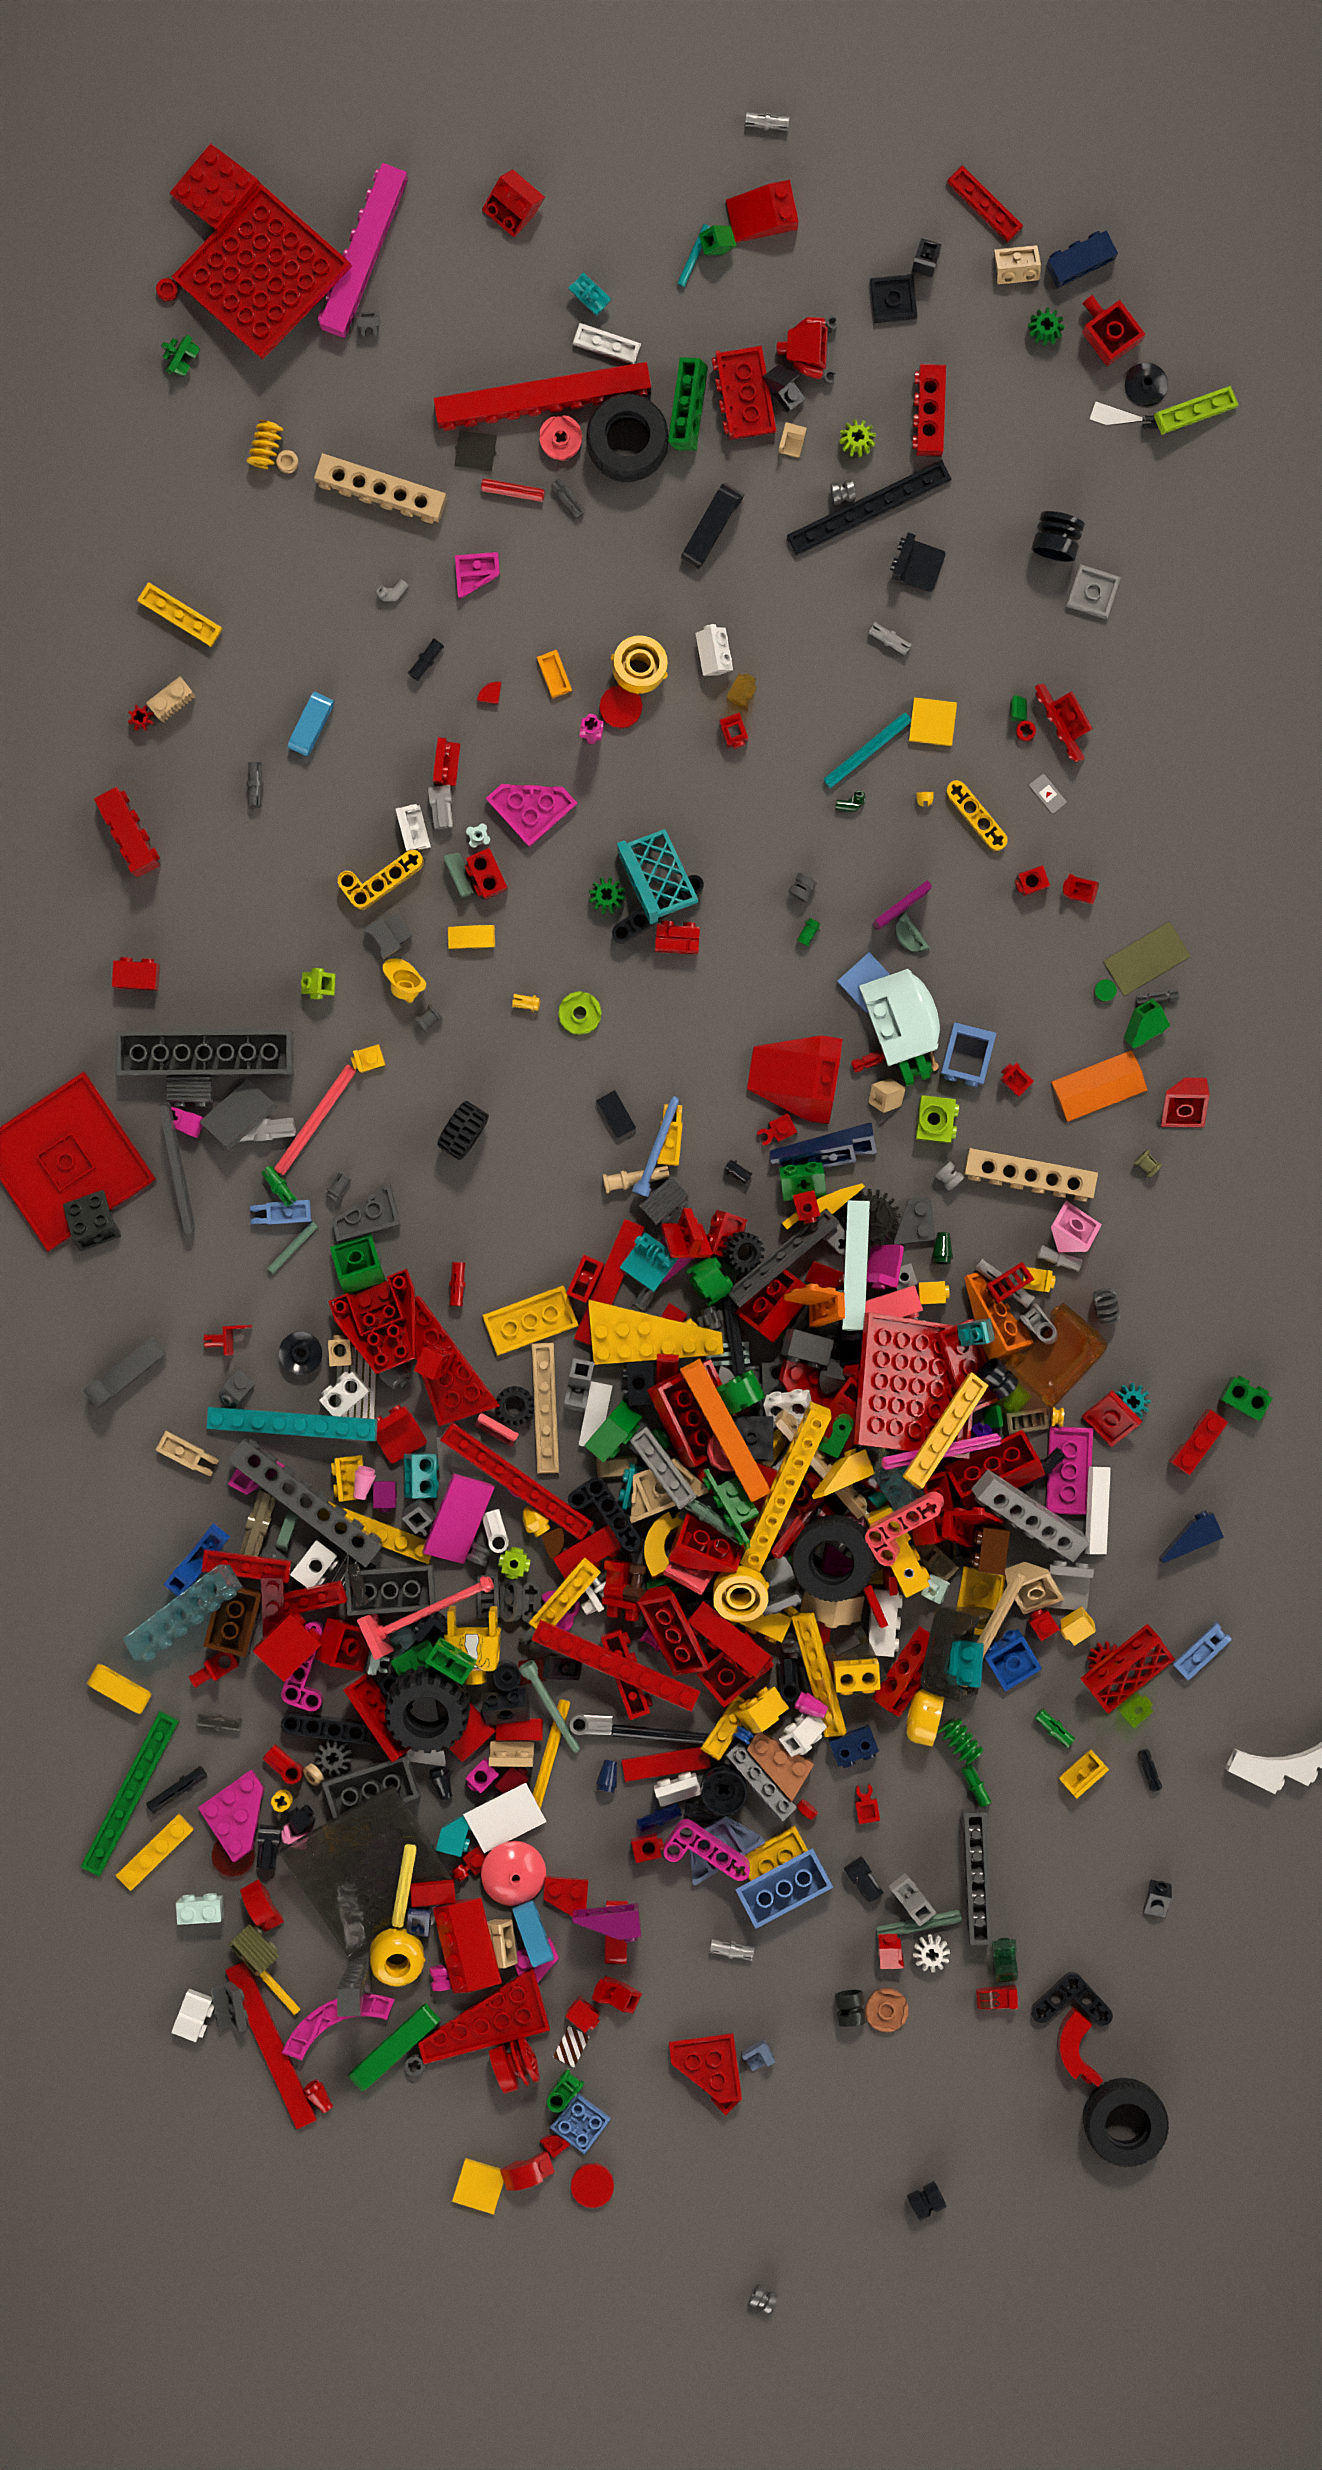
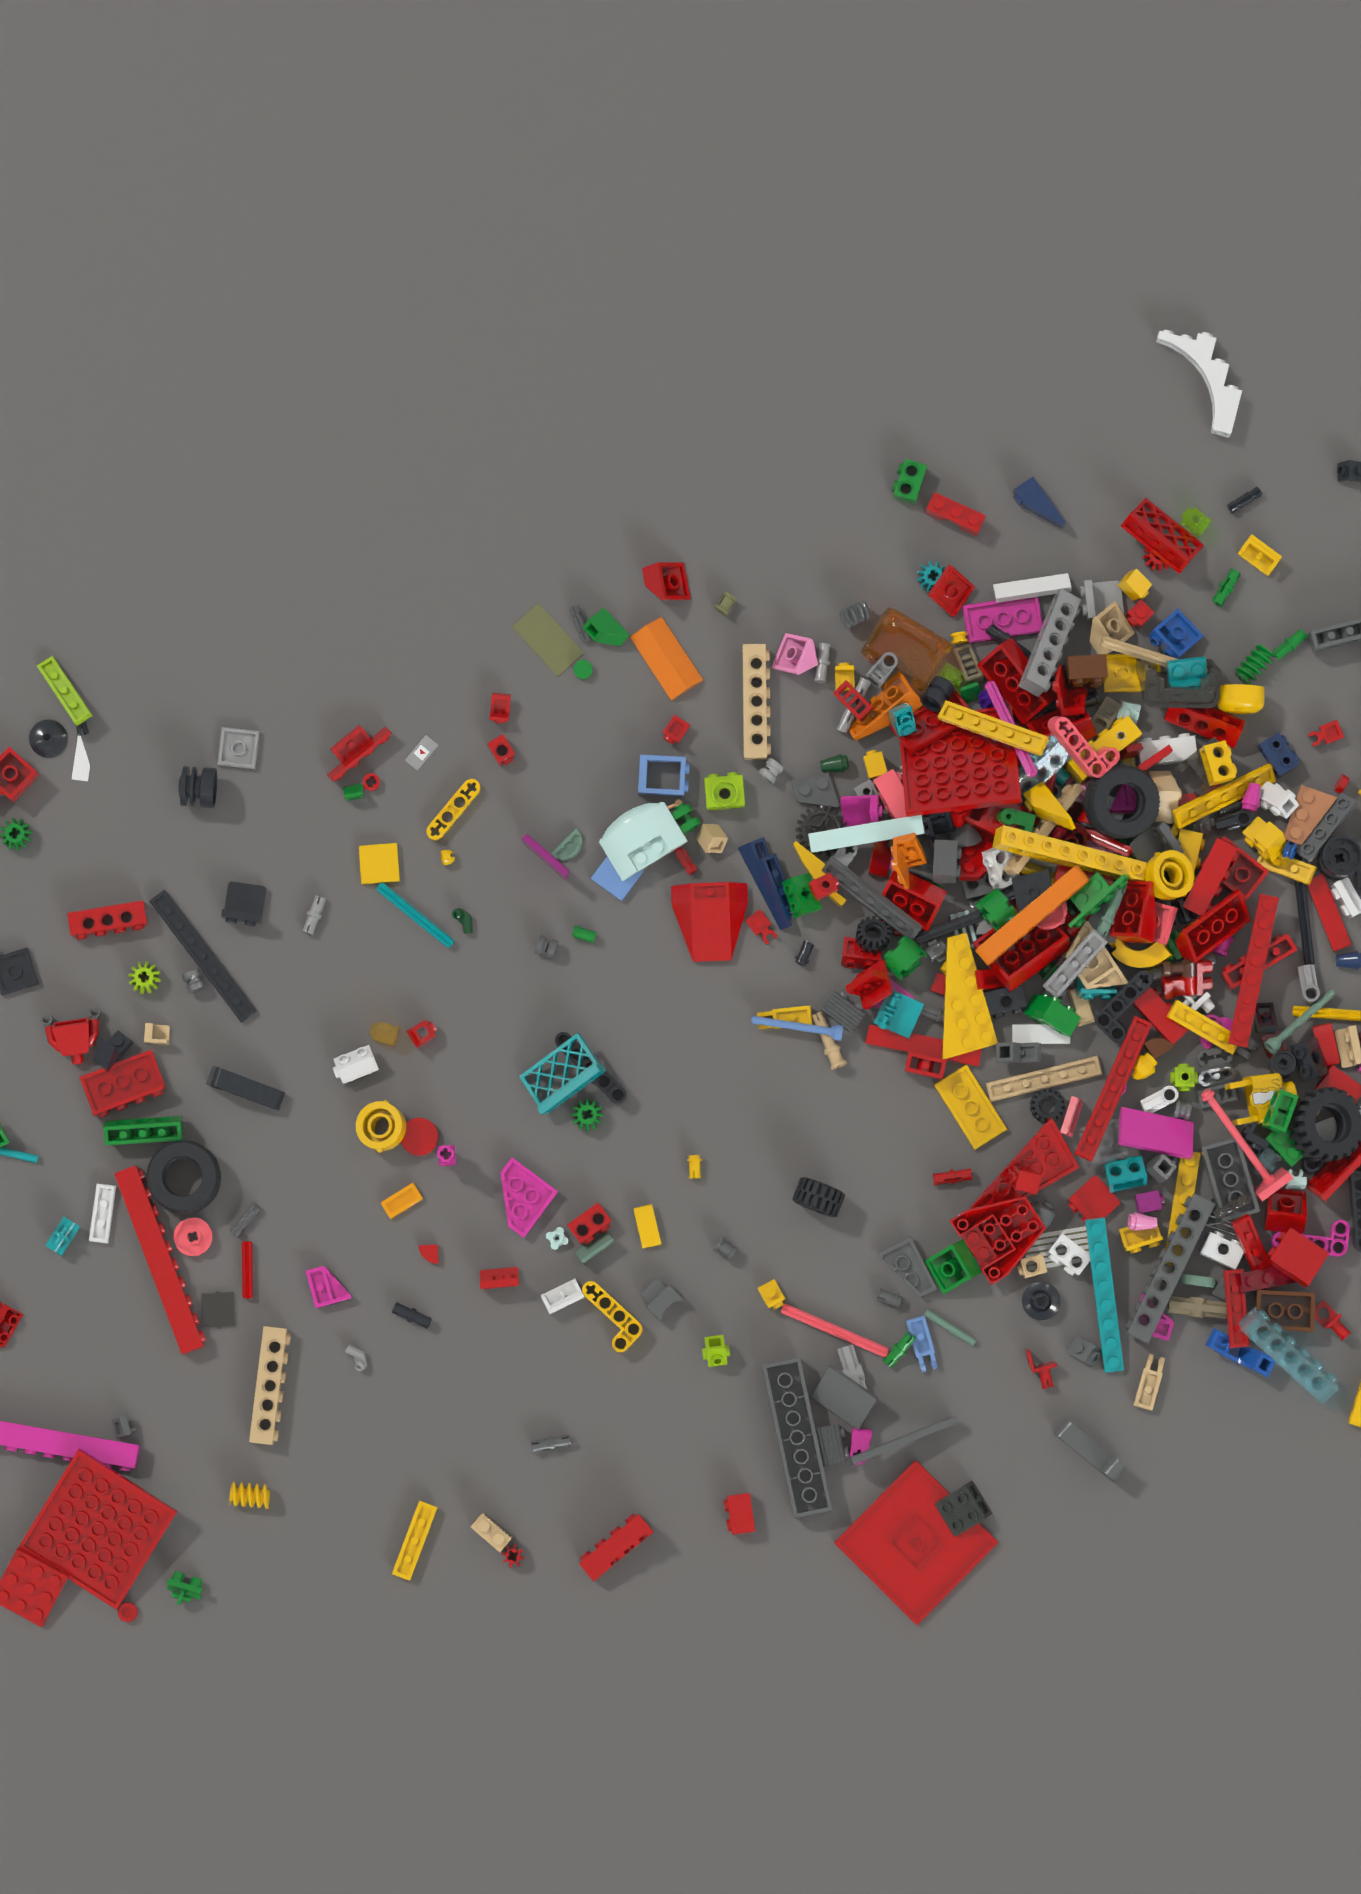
camera: 100 degrees left, 5 degrees down
(287, 461) = (260, 1473): tan tile -> none
(310, 724) = (488, 1404): dark azure beam -> none
(404, 979) = (696, 1276): yellow piece -> none
(441, 801) = (534, 1276): light grey piece -> none
(576, 1000) = (682, 1118): lime tile -> none
(616, 1114) = (776, 1069): black tile -> none
(676, 938) = (613, 1046): red brick -> none
(1201, 1651) = (1134, 476): medium blue plate -> none

